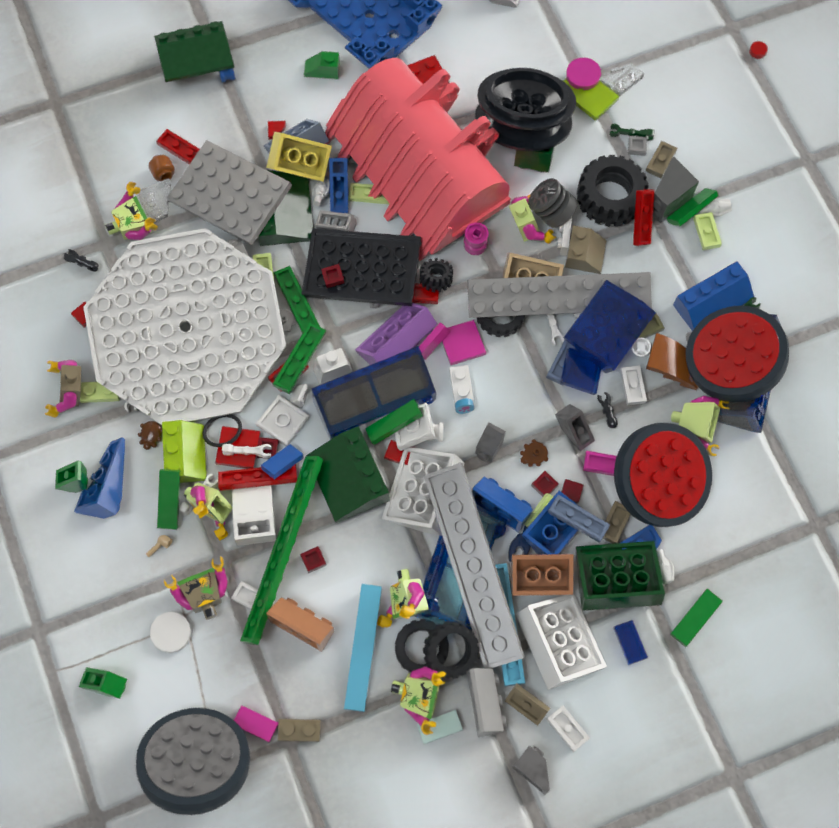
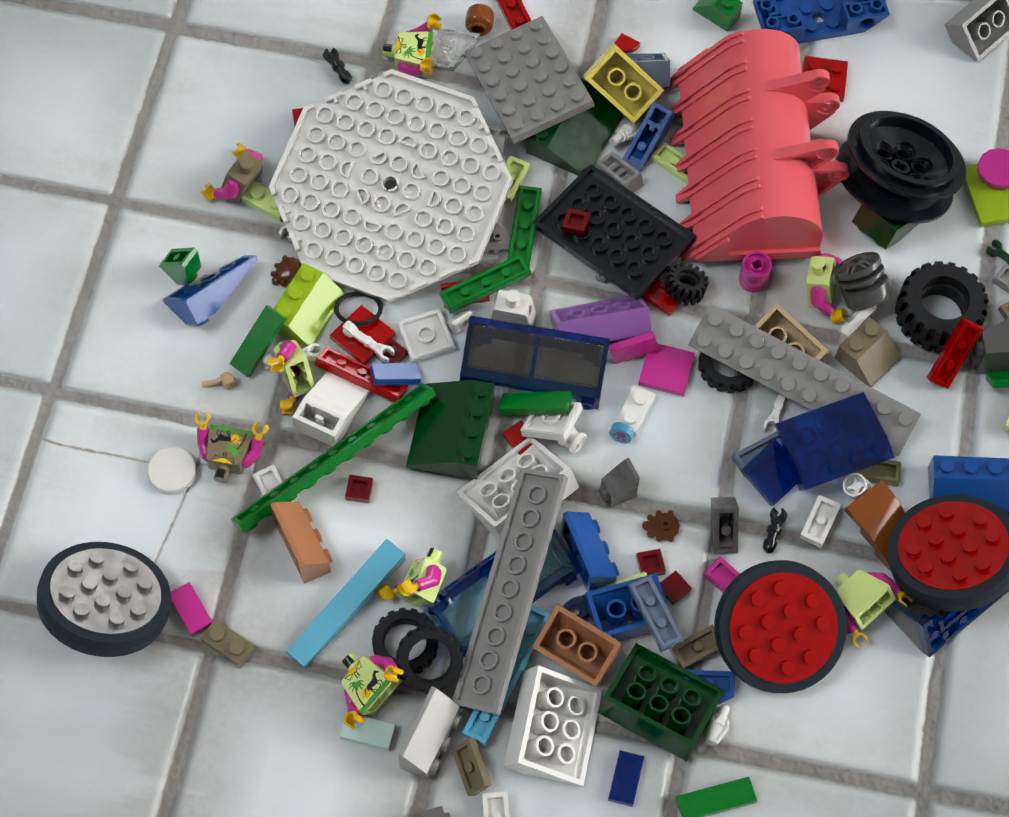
camera: 35 degrees right, 5 degrees down
(103, 682) = (76, 476): green slope -> none

